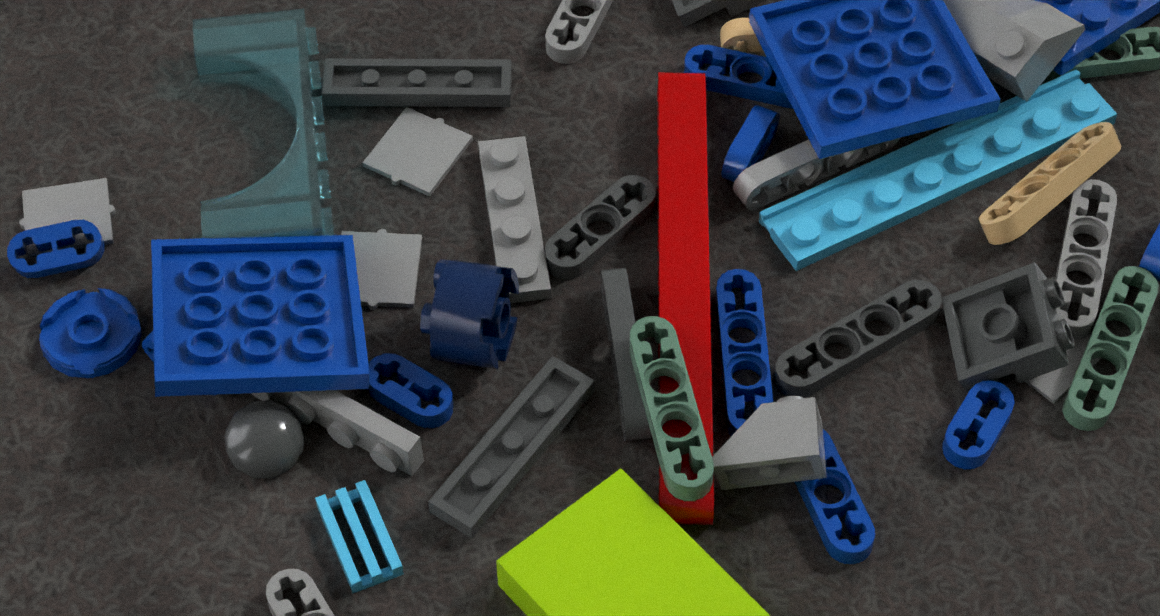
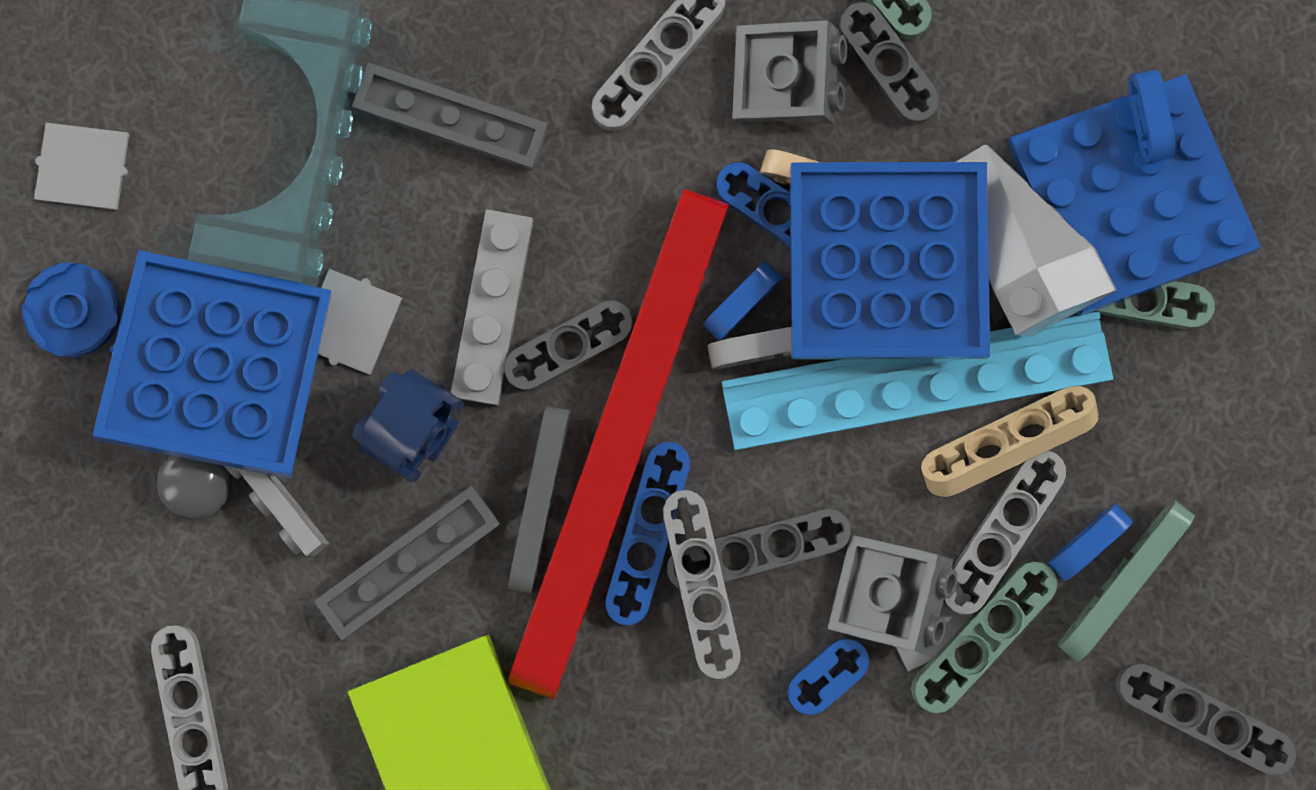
camera: 20 degrees right, 30 degrees up
(53, 238) = (59, 198): blue beam -> none
(345, 501) = (230, 610): medium azure tile -> none
(414, 384) = (327, 478): blue beam -> none
(417, 151) = (429, 194): light grey piece -> none
(671, 406) = (542, 590): sand green beam -> none
(774, 446) = (632, 656): light grey slope -> none
(823, 366) = (706, 583): none -> light grey beam
(827, 515) = (655, 738): blue beam -> none

